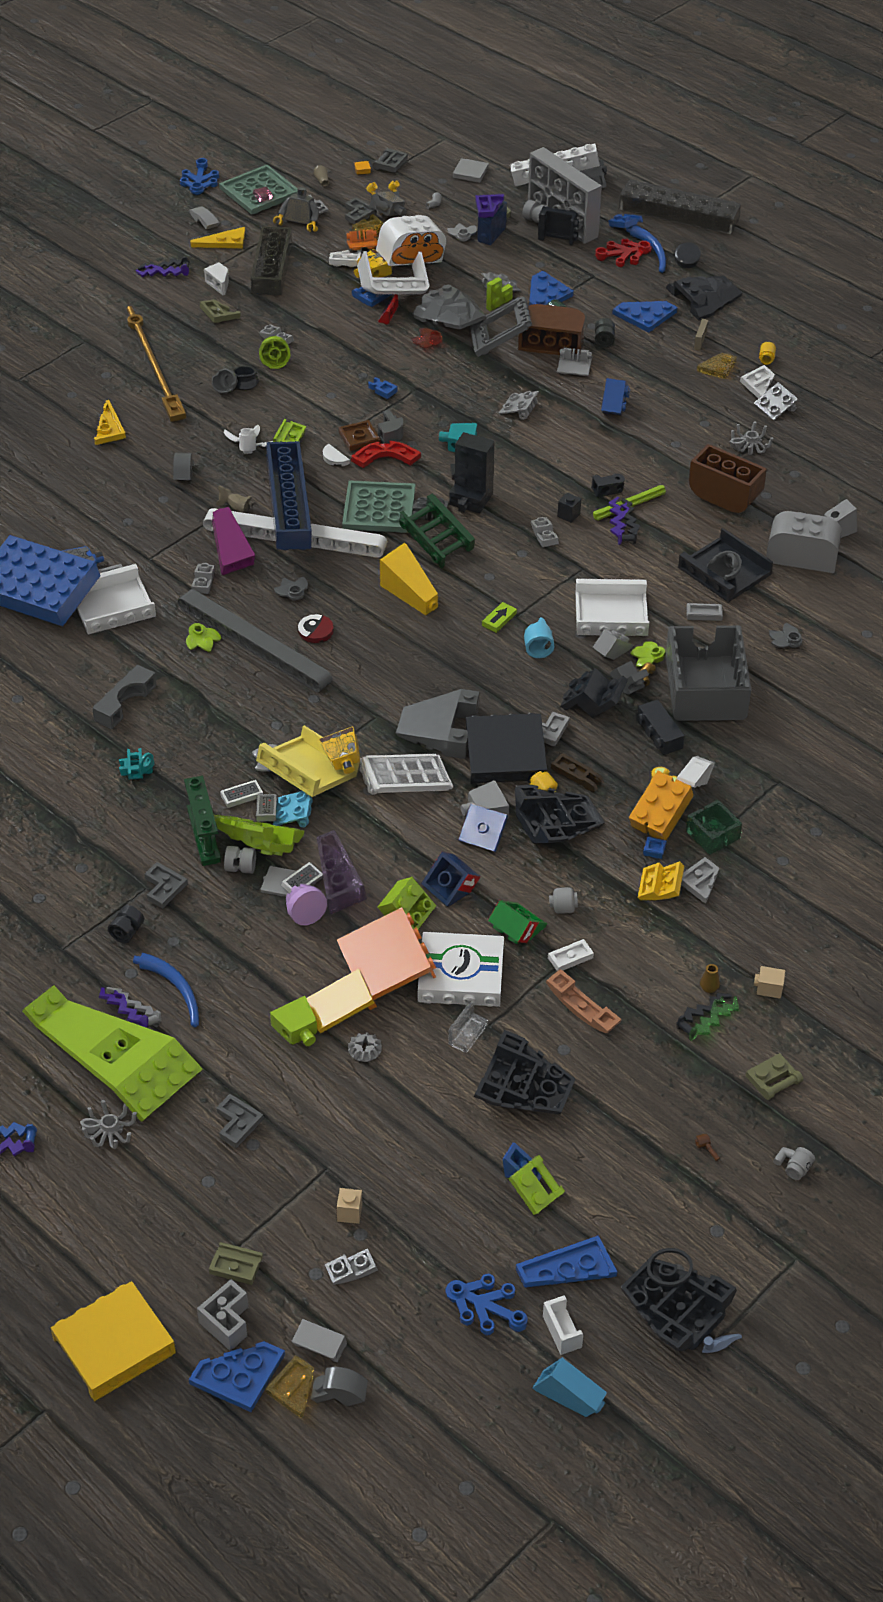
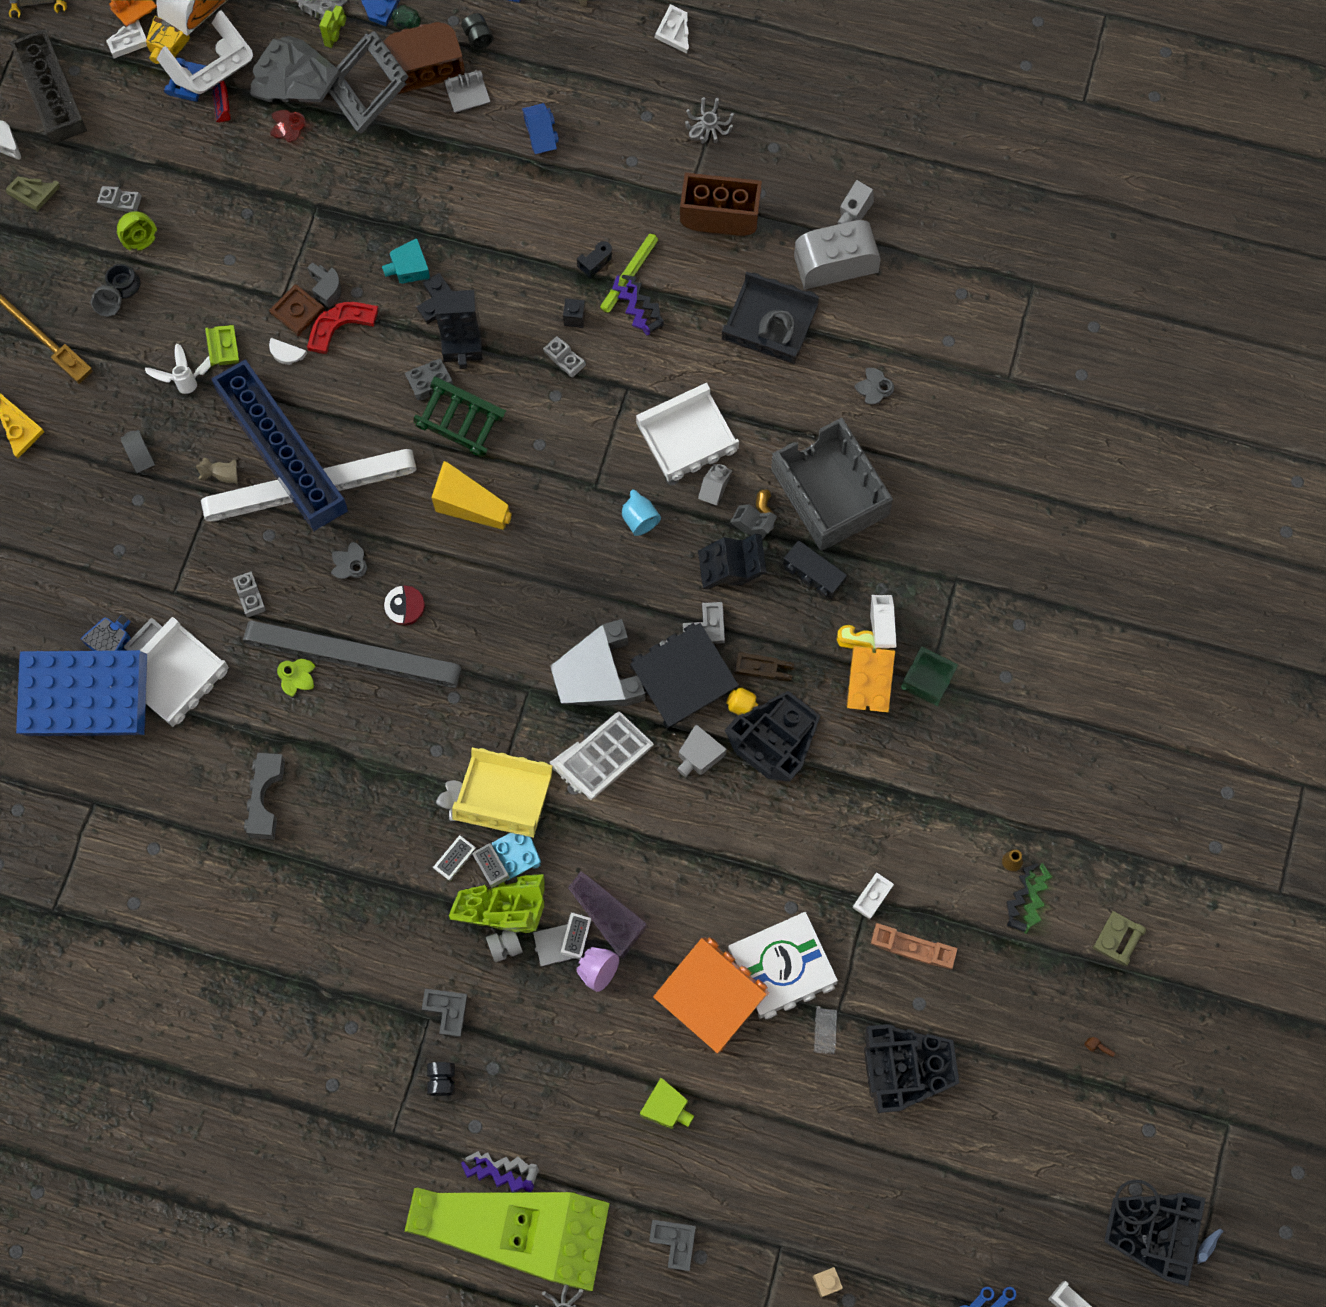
camera: 25 degrees left, 25 degrees up
(136, 768) = (335, 875): teal piece -> none
(166, 970) = (514, 1110): blue animal -> none
(202, 820) = (444, 921): dark green fence -> none
(231, 543) = (254, 537): magenta slope -> none
(340, 1000) = (694, 1063): tile -> none
(342, 749) = (532, 766): yellow torso -> none
(372, 1050) = (737, 1107): light grey gear -> none
(377, 505) = (374, 403): sand green plate -> none
(383, 388) = (283, 227): blue plate -> none
(411, 898) = (691, 916): lime slope -> none
(450, 878) = (715, 863): dark blue slope -> none
(483, 827) = (714, 786): plate -> none
(499, 617) = (580, 498): lime tile -> none
(516, 921) = (804, 882): green slope -> none
(516, 1159) = (957, 1160): blue slope -> none
(520, 403) = (441, 181): light grey hinge -> none
(531, 1189) = (974, 1179): lime plate -> none
(564, 900) = (834, 835): light grey head -> none
(569, 1264) = (1048, 1235): blue wing -> none
(647, 653) = (750, 476): lime plate -> none
(654, 847) = (882, 723): blue tile -> none
(660, 881) = (911, 765): yellow slope -> none
(700, 879) = (945, 742): light grey wing -> none
(704, 612) = (779, 390): light grey tile -> none
(718, 365) = (619, 22): clear yellow wing -> none
(769, 982) = (1066, 834): tan brick -> none
(776, 401) = (707, 52): light grey hinge -> none
(799, 1163) = (1187, 1024): light grey piece -> none

